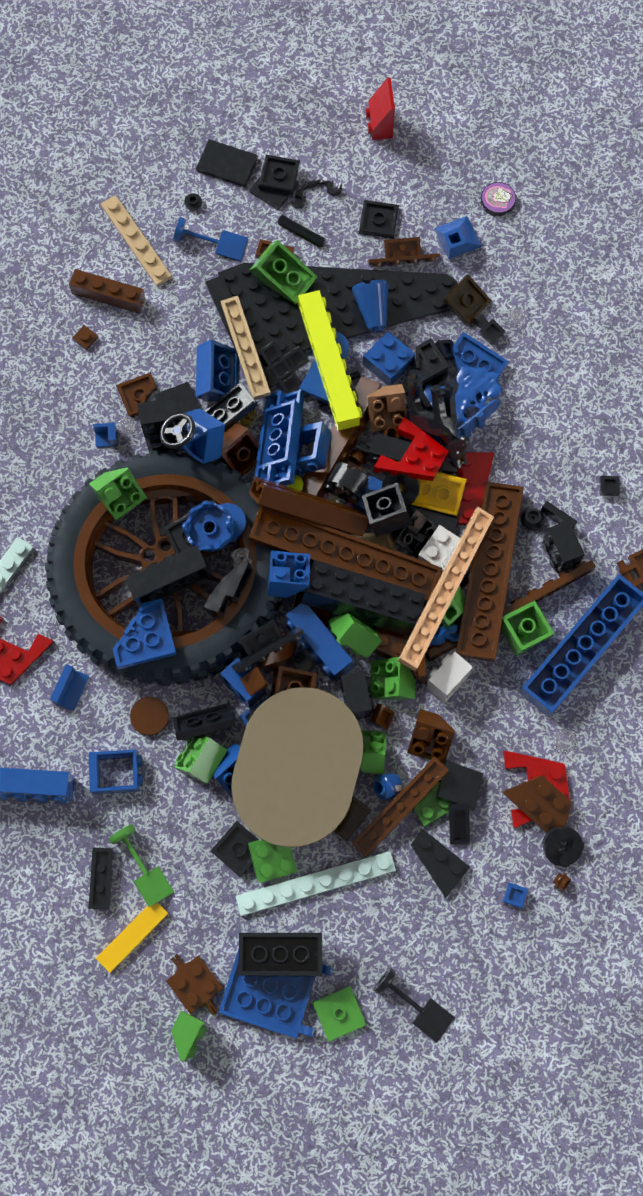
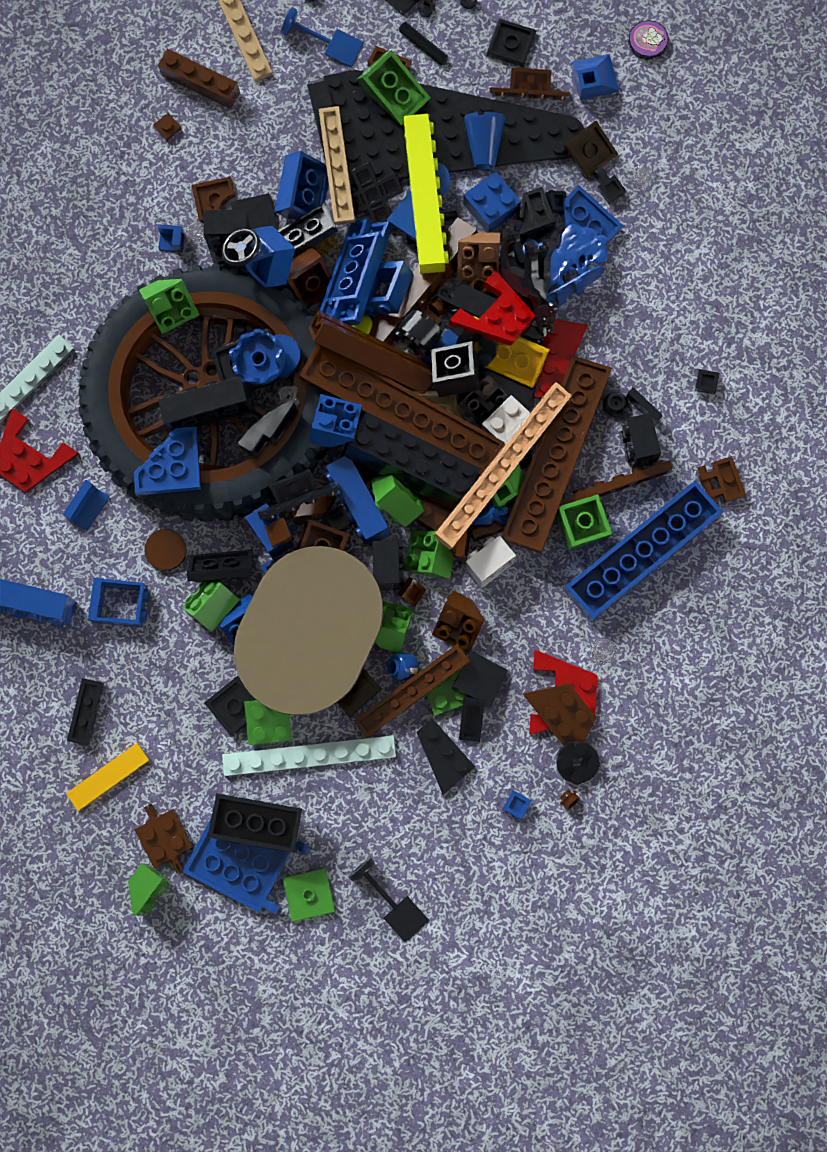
camera: 15 degrees right, 5 degrees up
(153, 884) = (139, 727): bright green piece -> none

